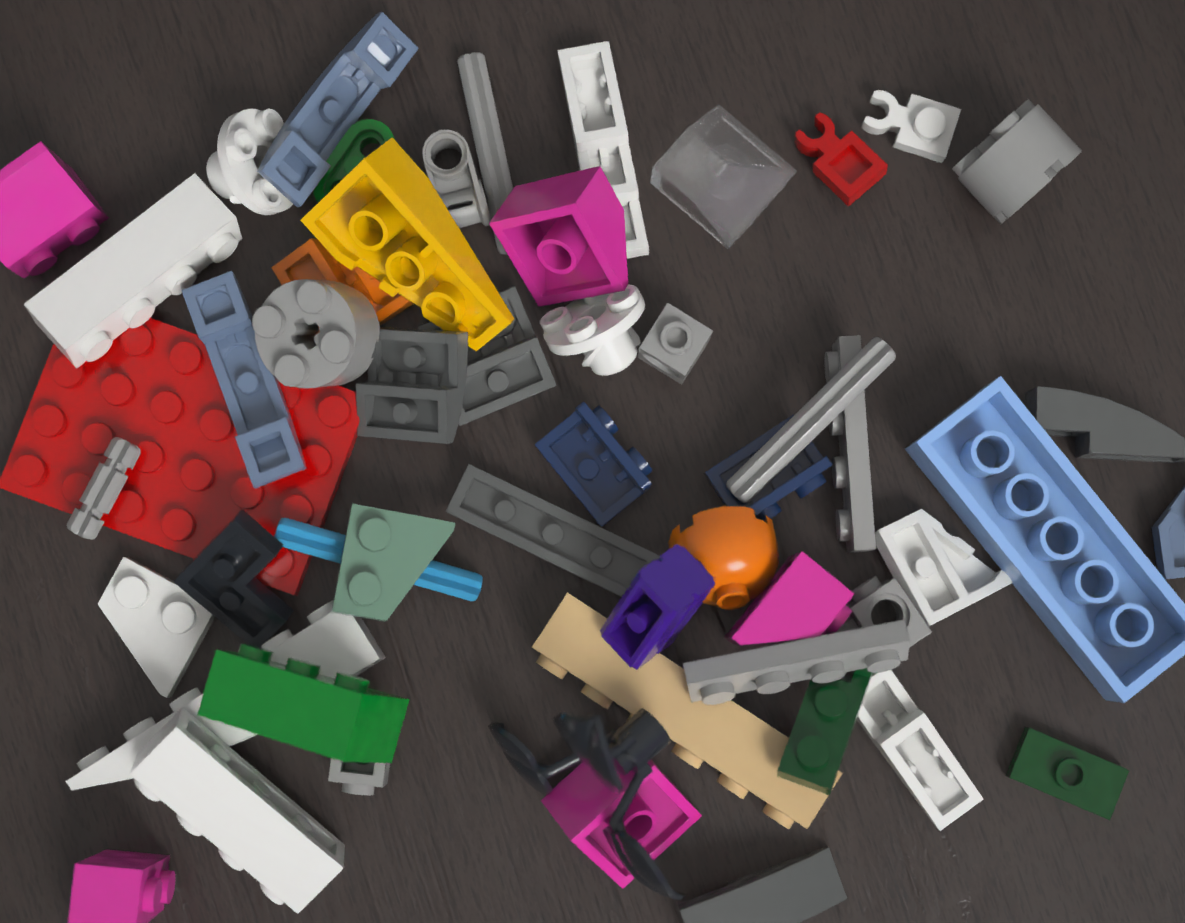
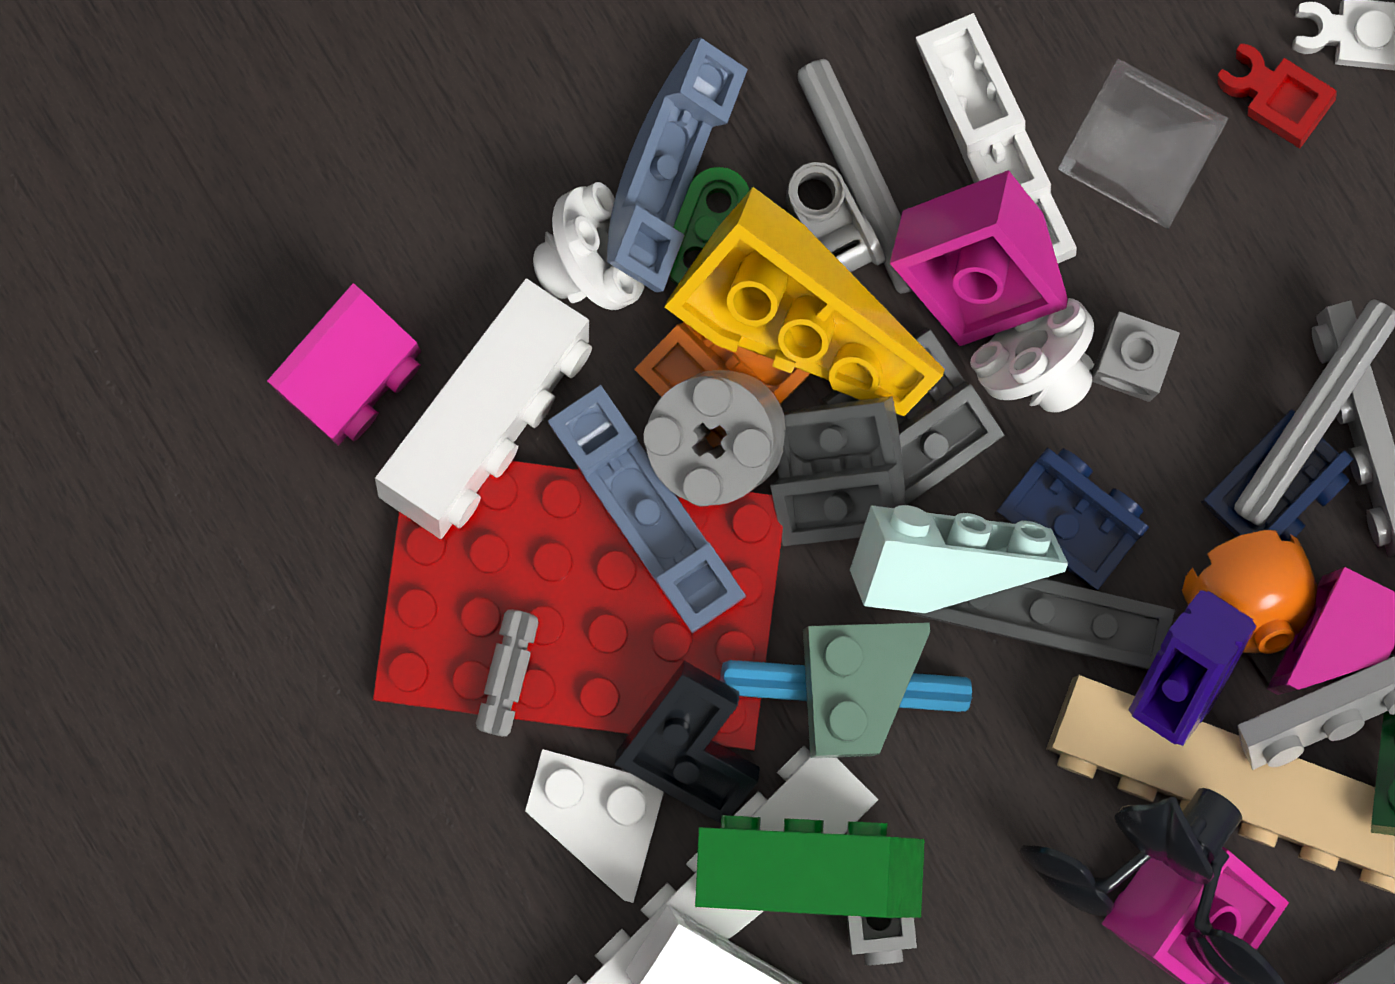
camera: 15 degrees left, 0 degrees up
(474, 473) = (940, 560): none -> light aqua slope

